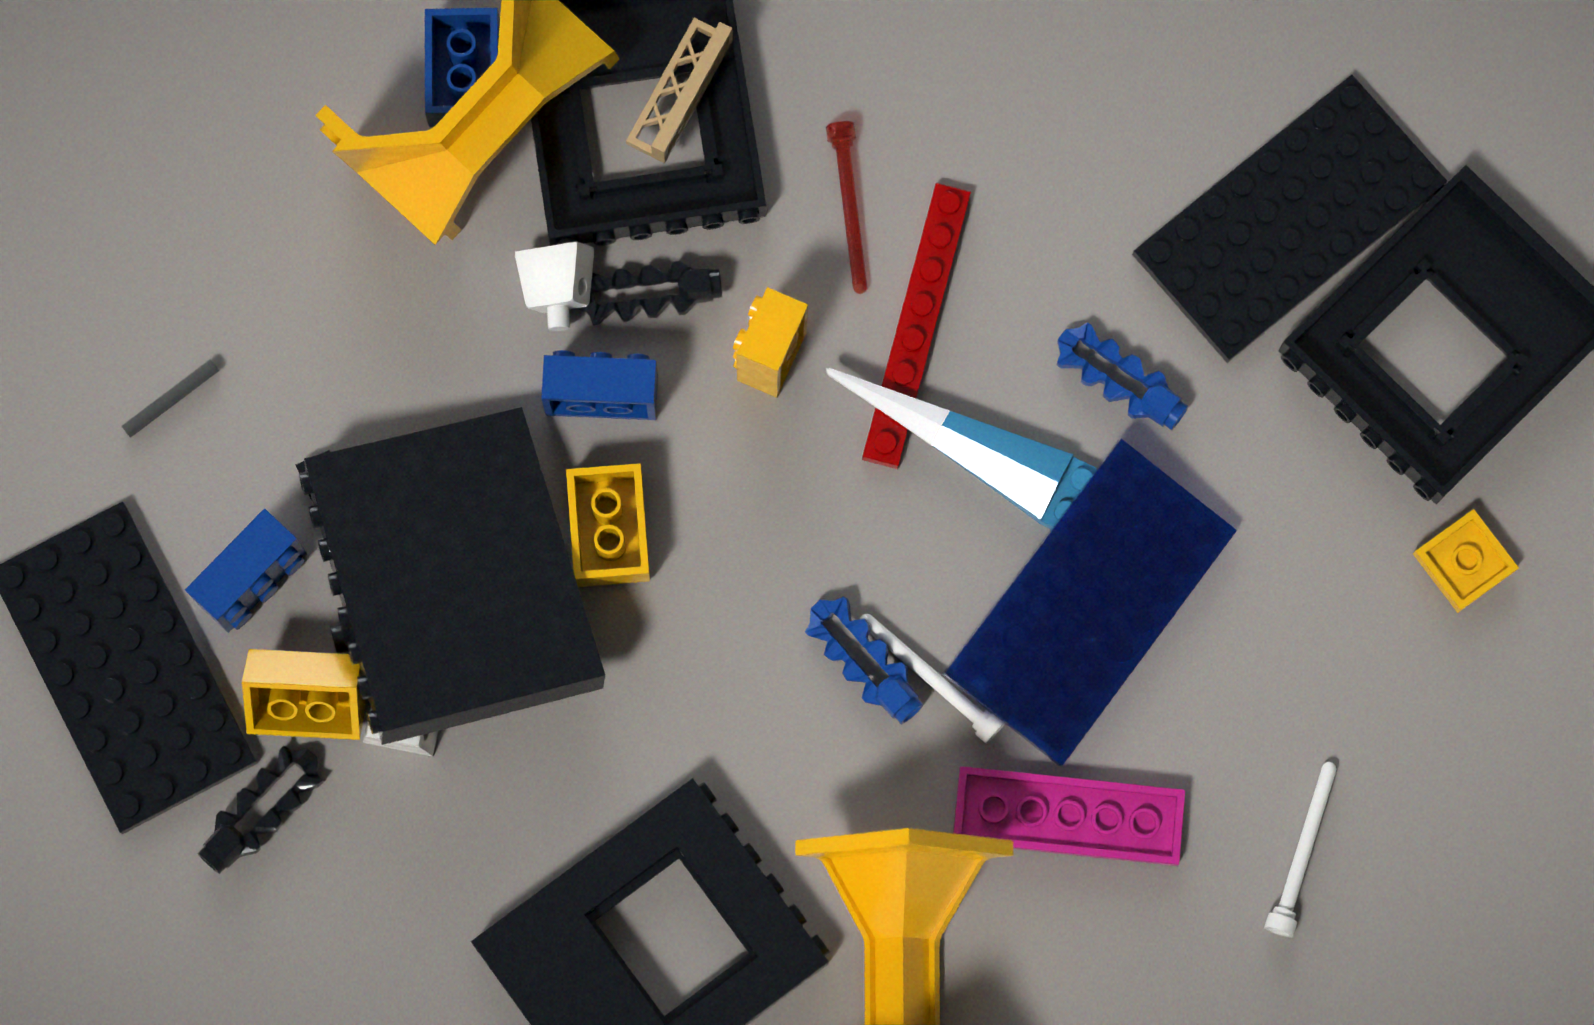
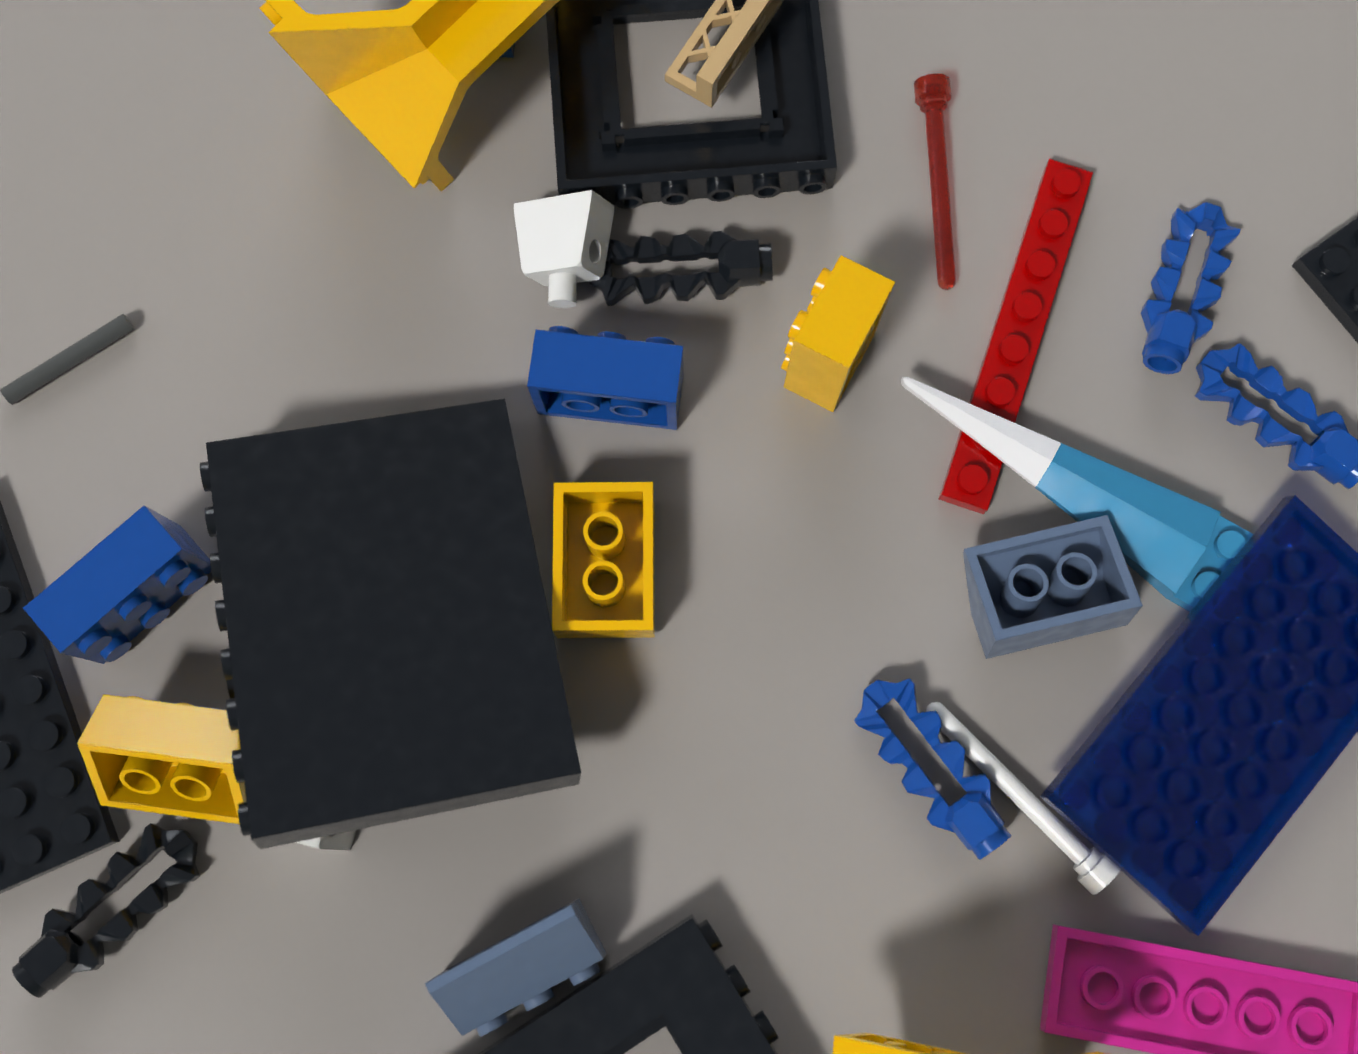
camera: 10 degrees right, 0 degrees up
(571, 823) = (519, 970): none -> sand blue slope
(943, 521) = (1049, 586): none -> sand blue slope
(1034, 317) = (1174, 332): none -> blue sword

